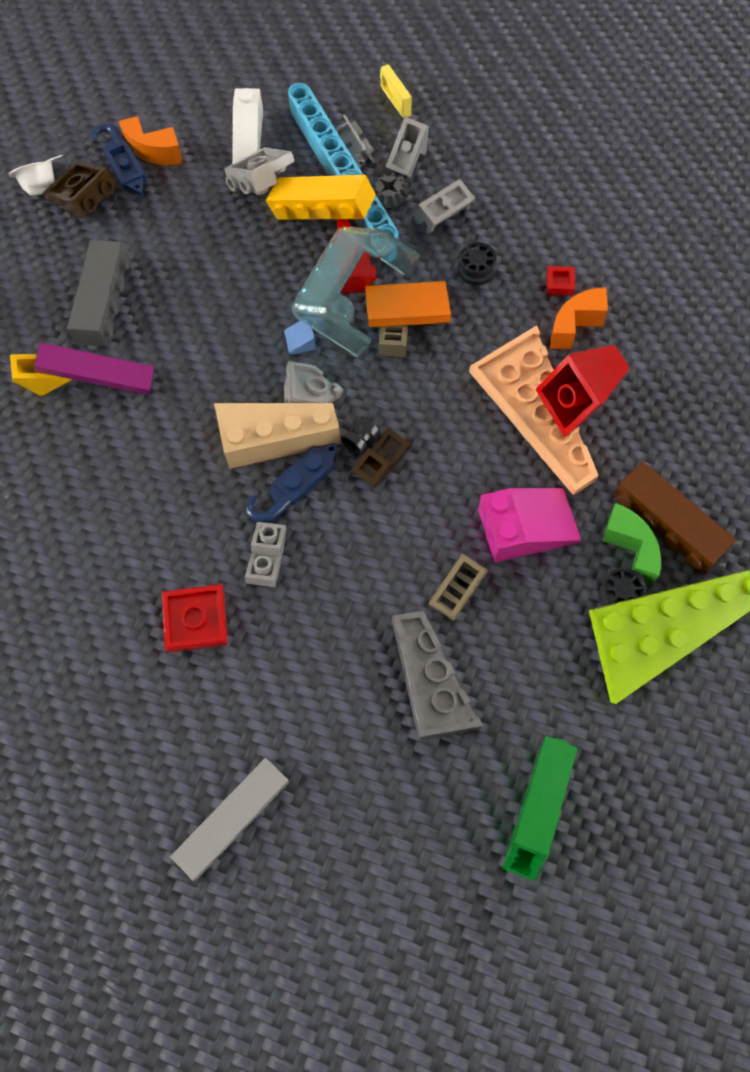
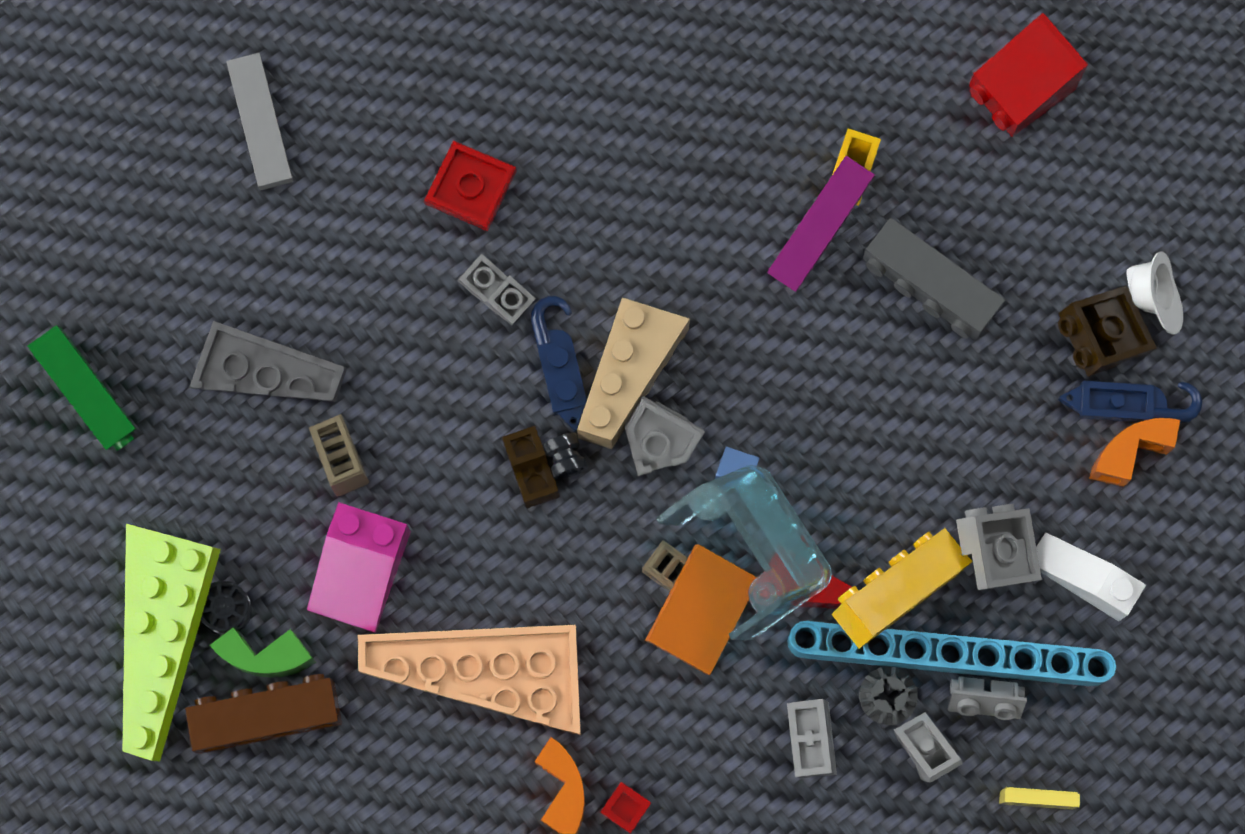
camera: 120 degrees right, 10 degrees up
(477, 265) = (710, 727): black wheel -> none
(581, 385) = (452, 711): red slope -> none

